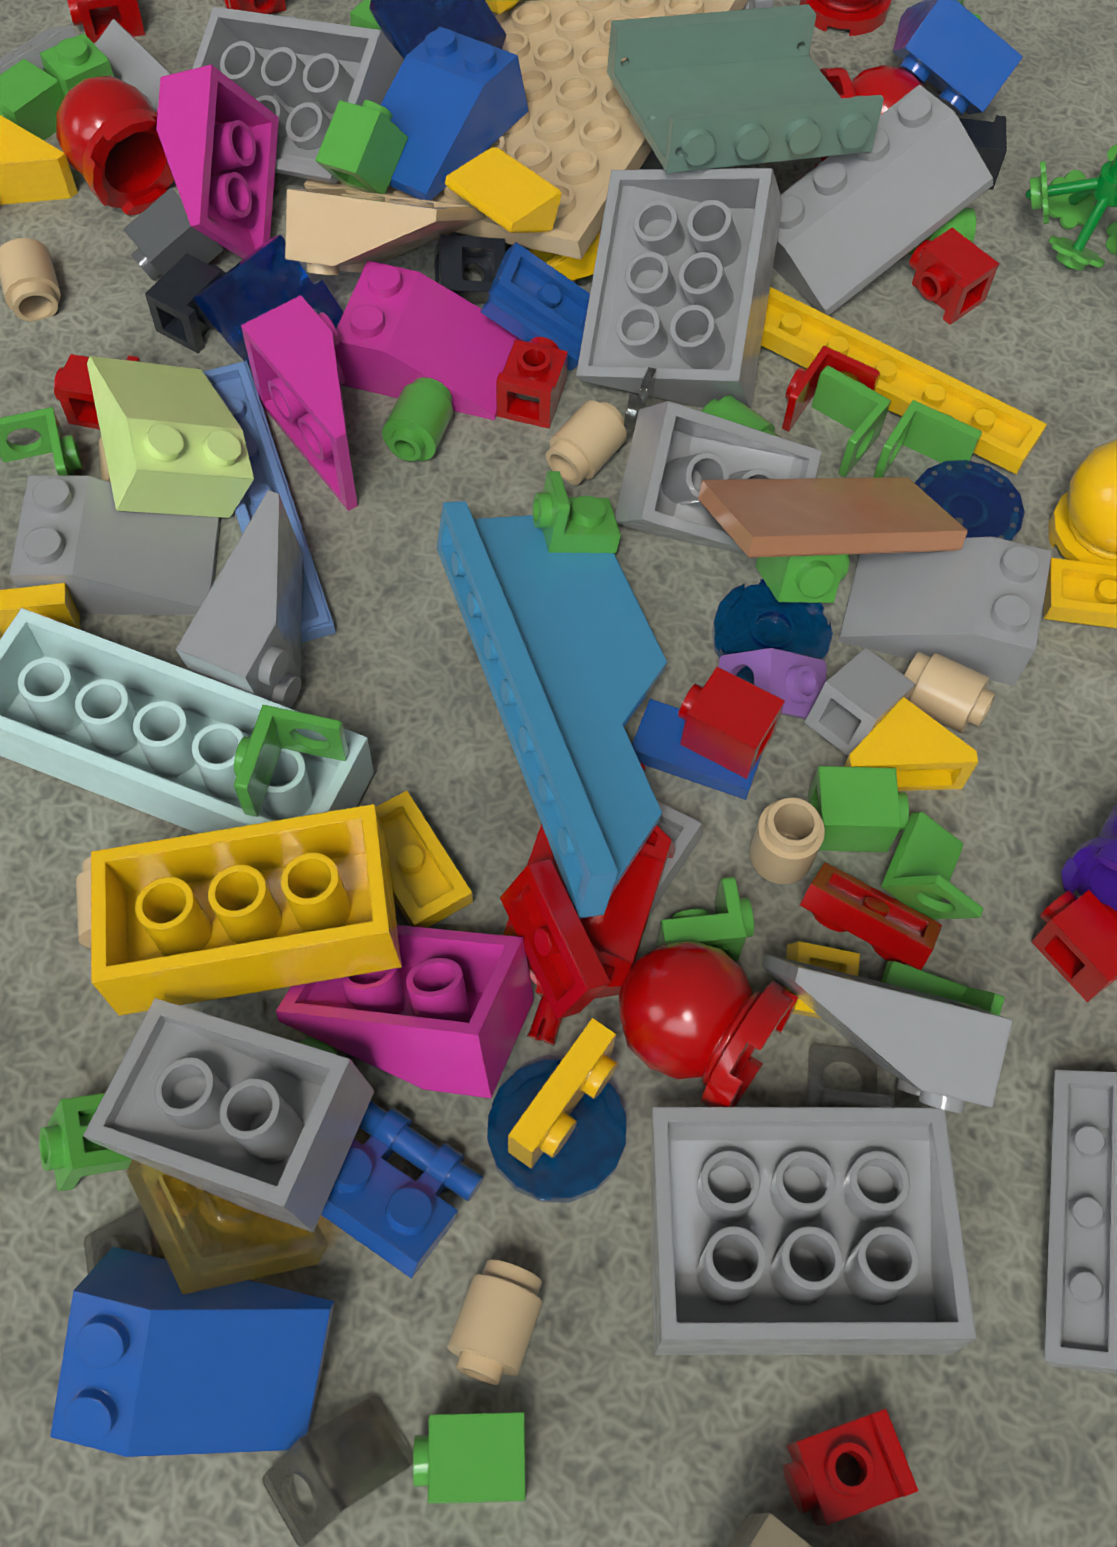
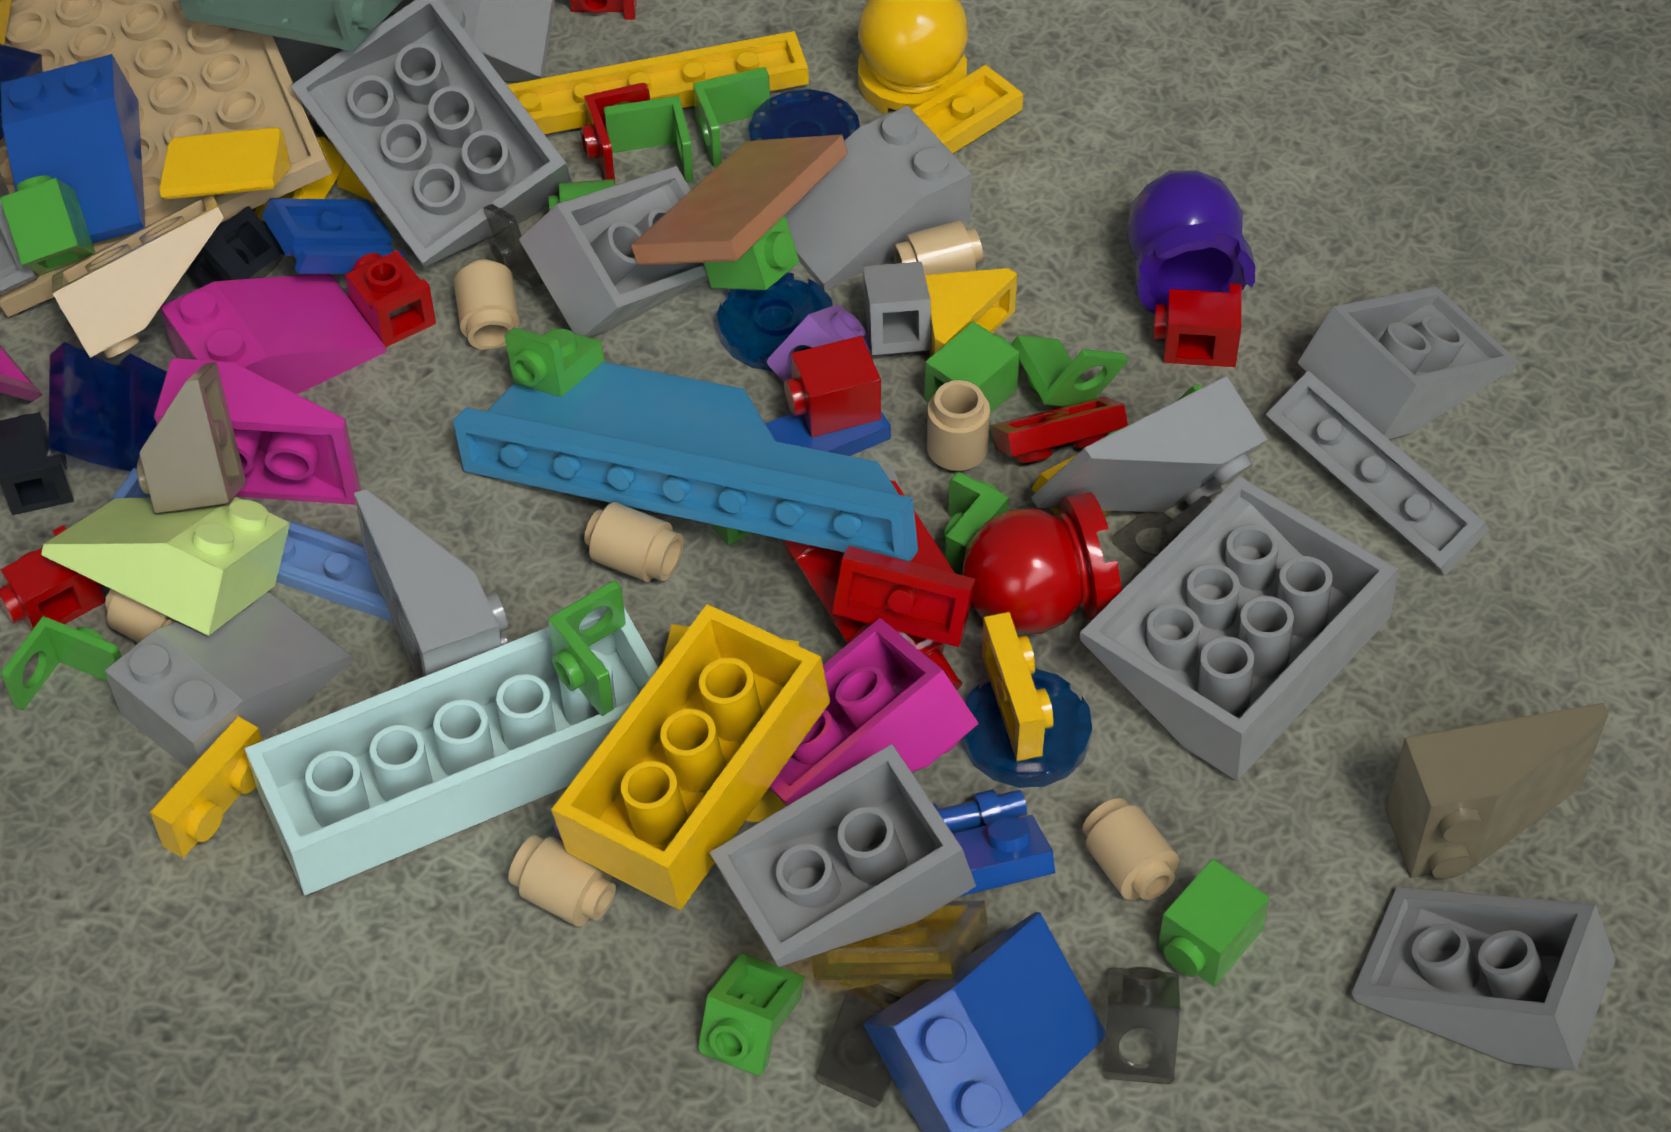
camera: 45 degrees left, 10 degrees down
(234, 367) = (193, 449): none -> dark tan slope
(418, 420) = (339, 387): bright green brick -> none
(460, 705) = (633, 542): none -> tan brick
(880, 1459) = (1410, 705): red brick -> none

